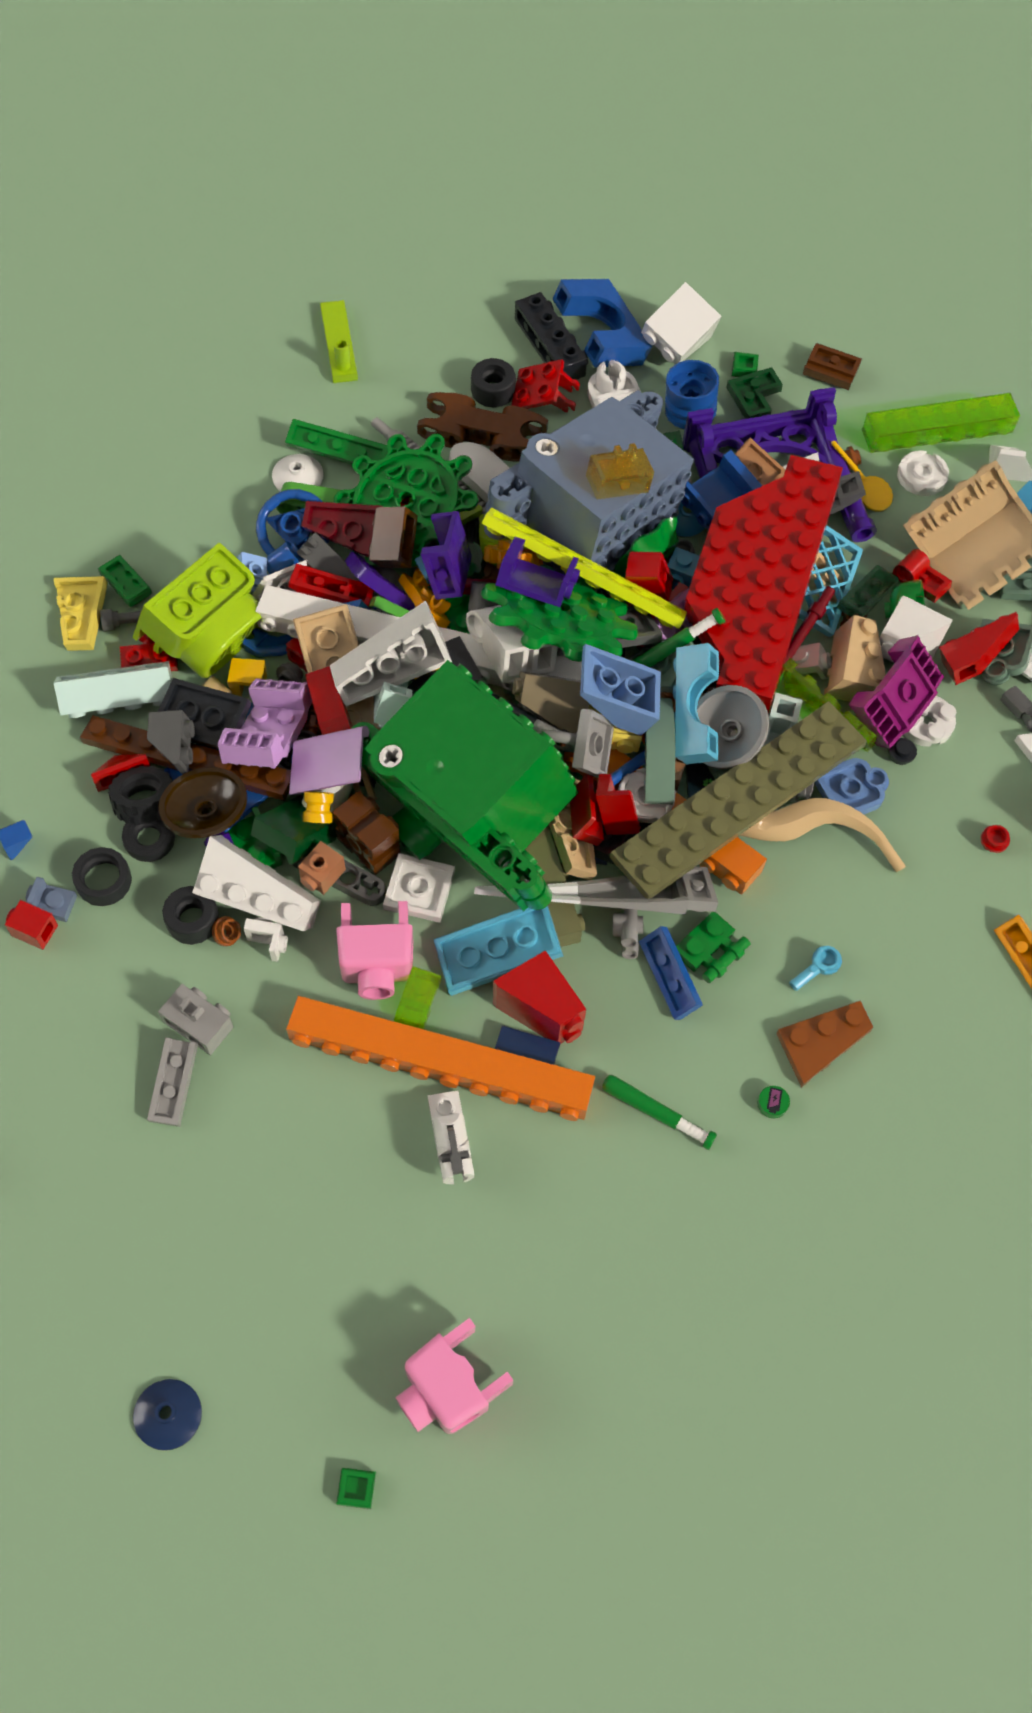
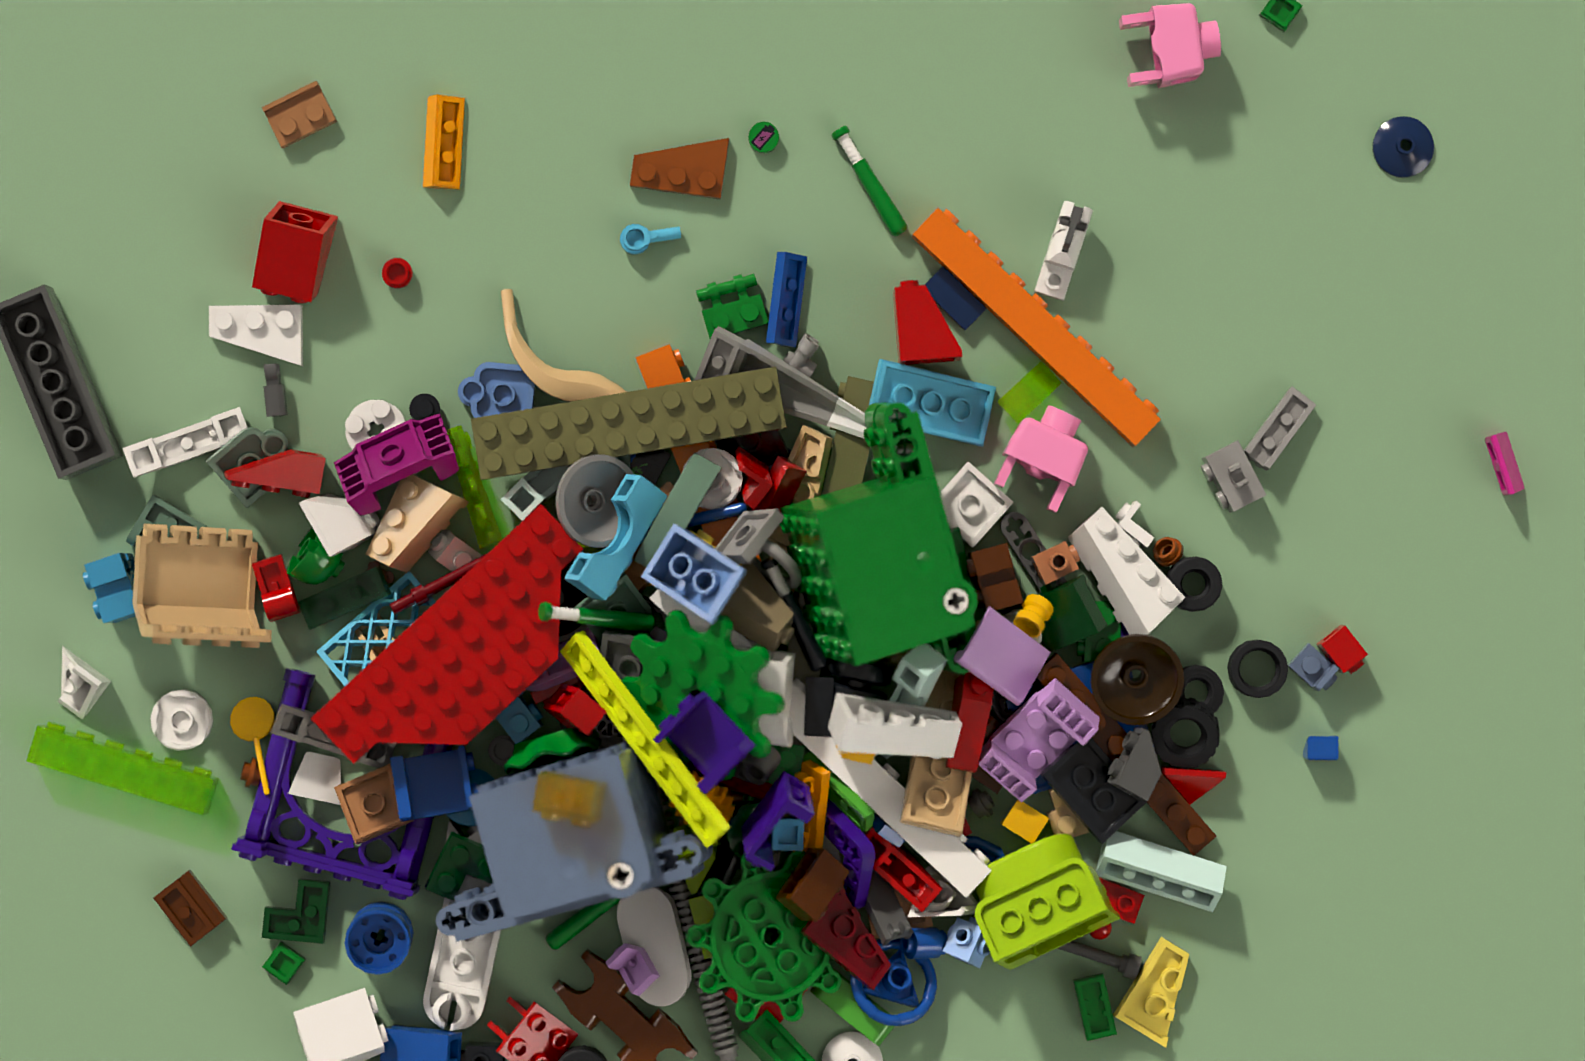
camera: 145 degrees left, 25 degrees up
(495, 453) = (634, 967): none -> lavender bracket

